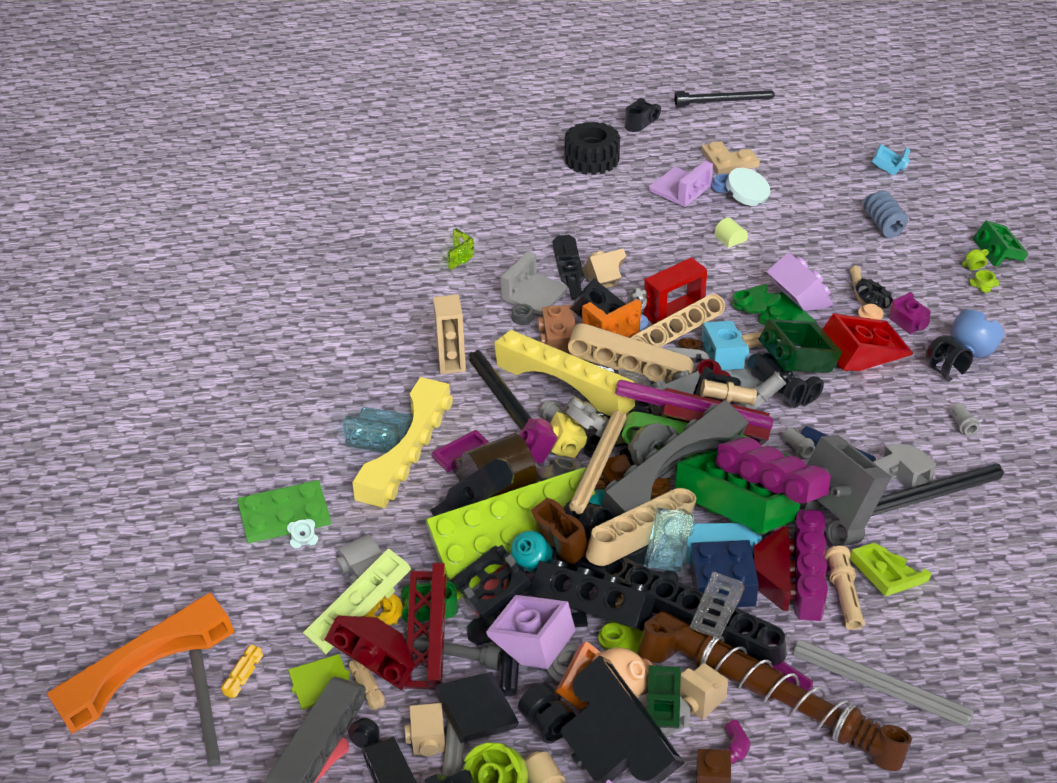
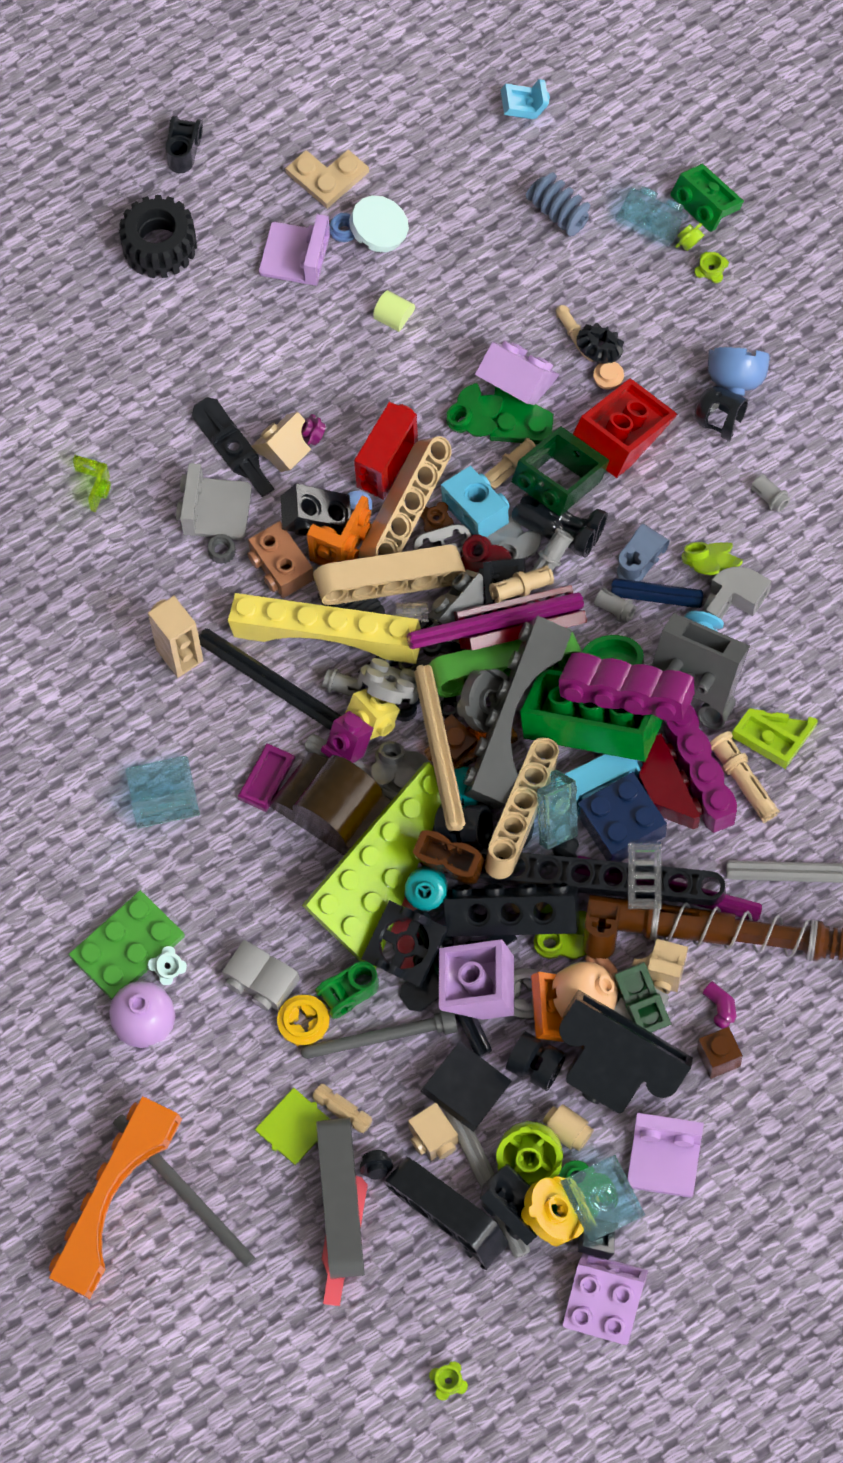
camera: 25 degrees left, 25 degrees up
(241, 671) = (211, 1154): yellow axle -> none
(260, 555) = (142, 1014): none -> lavender cylinder
(361, 596) = (285, 1027): yellowish green hinge -> none
(373, 646) = (334, 1070): dark red slope -> none
(380, 478) = (206, 856): light yellow arch -> none
(436, 624) = (382, 1019): dark red fence -> none
(484, 484) = (343, 839): black piece -> none
(629, 272) = (313, 430): none -> magenta plate
(640, 295) = (350, 483): light grey axle -> none
(682, 99) = (220, 87): black piece -> none
(838, 417) = (641, 553): none -> sand blue piece
(885, 436) = (710, 558): none -> lime plate
(909, 313) = (649, 367): magenta brick -> none
(938, 488) = (787, 595): black axle -> none
(952, 240) = (652, 216): none -> clear light blue bracket

